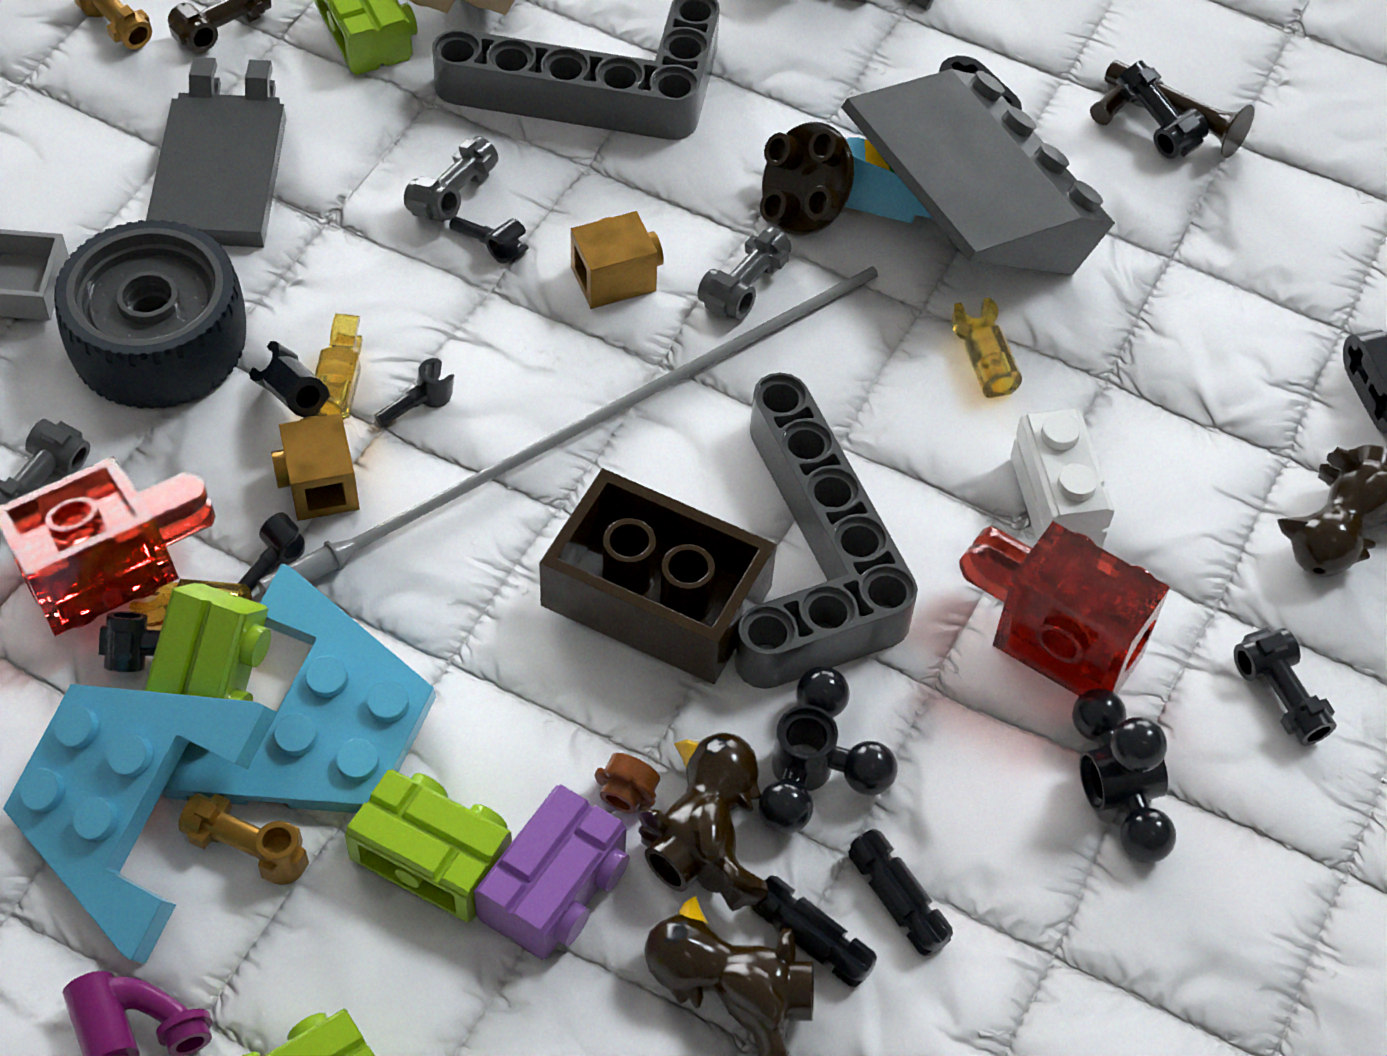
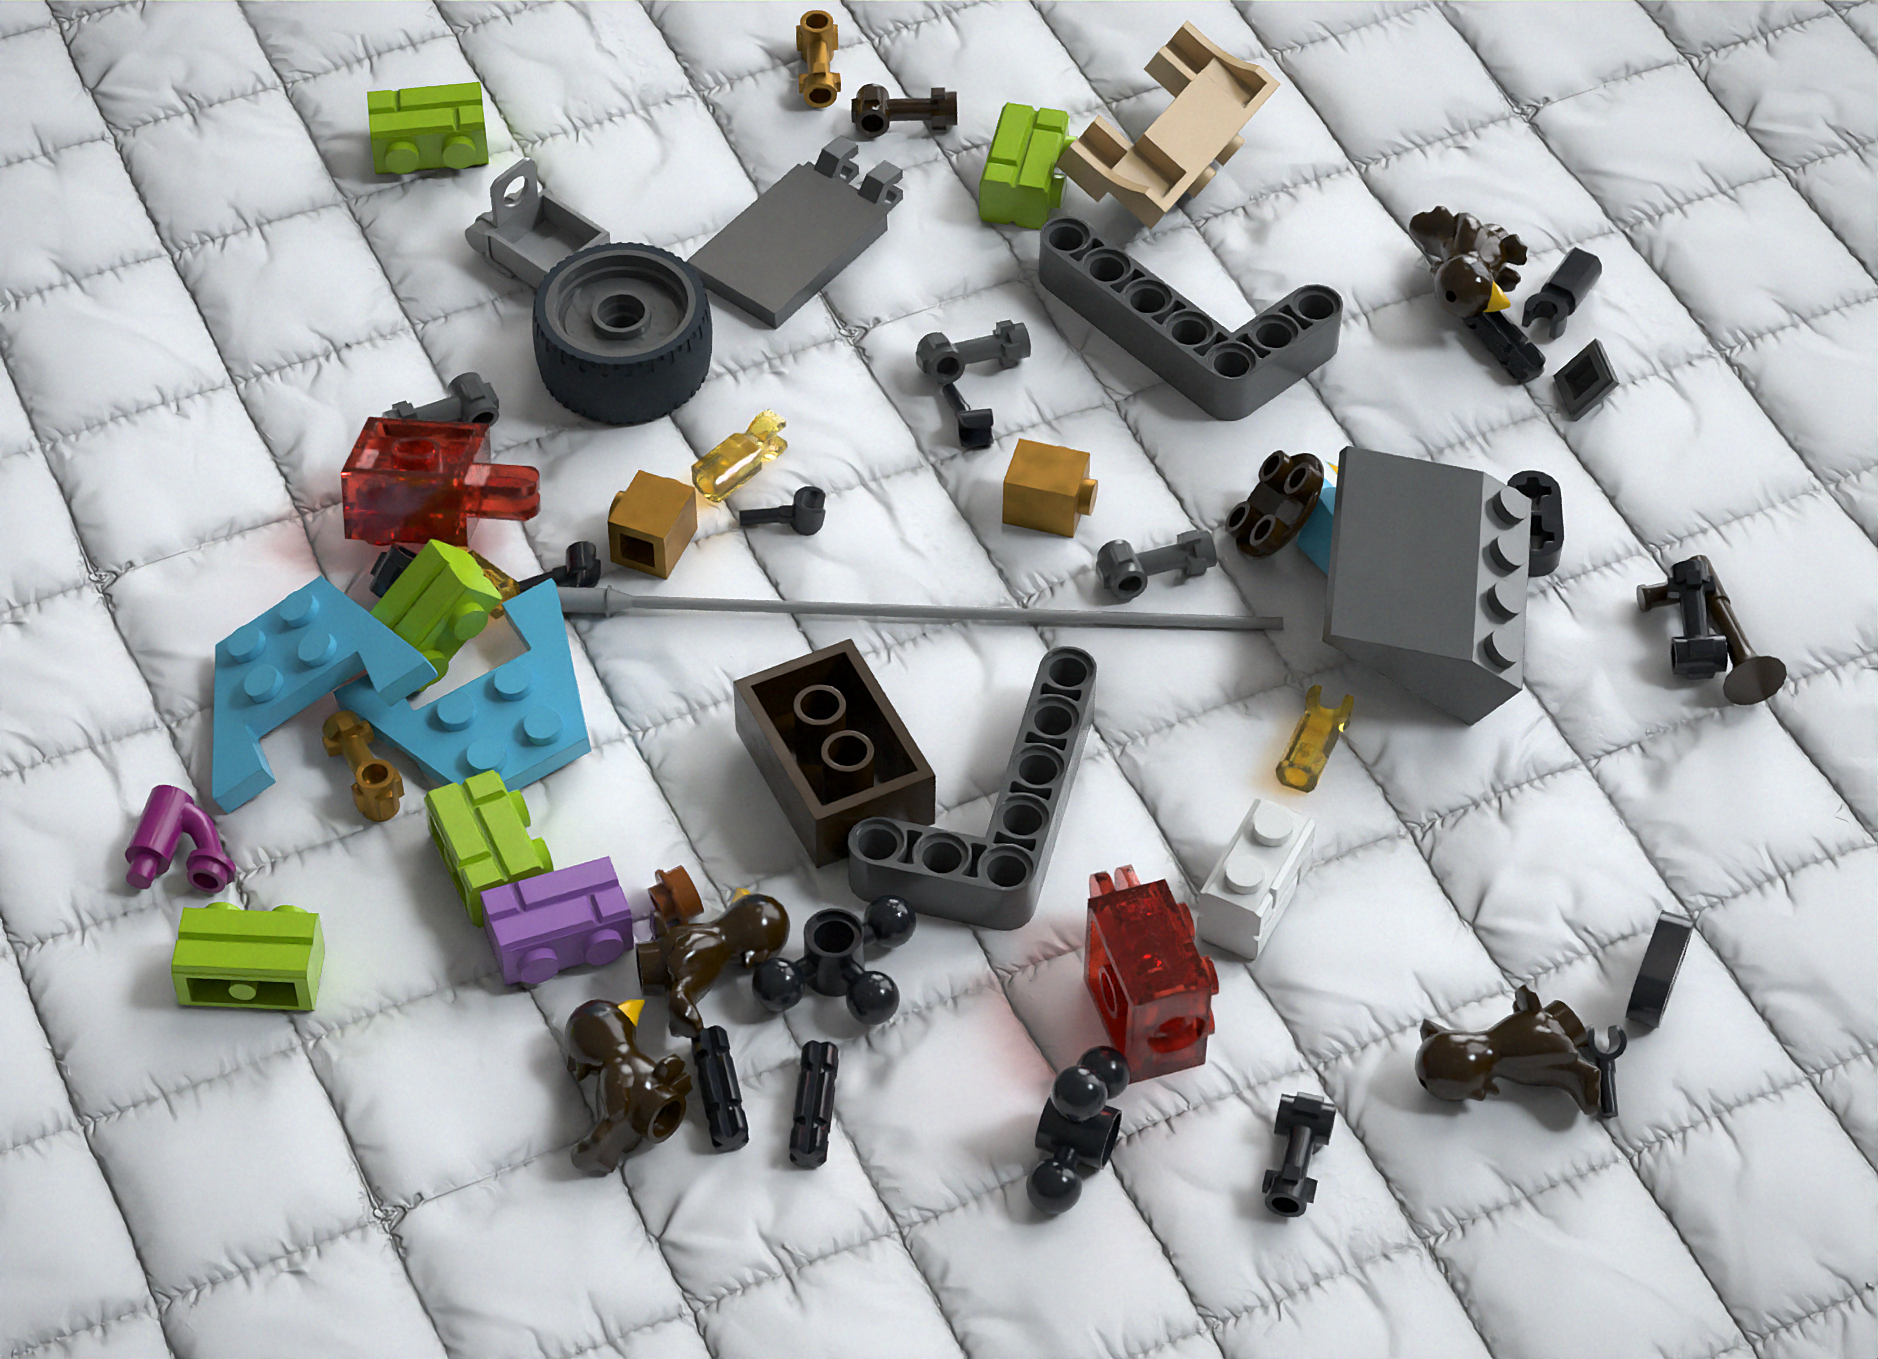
camera: 40 degrees right, 5 degrees down
(291, 382) = (684, 444): black bar -> none

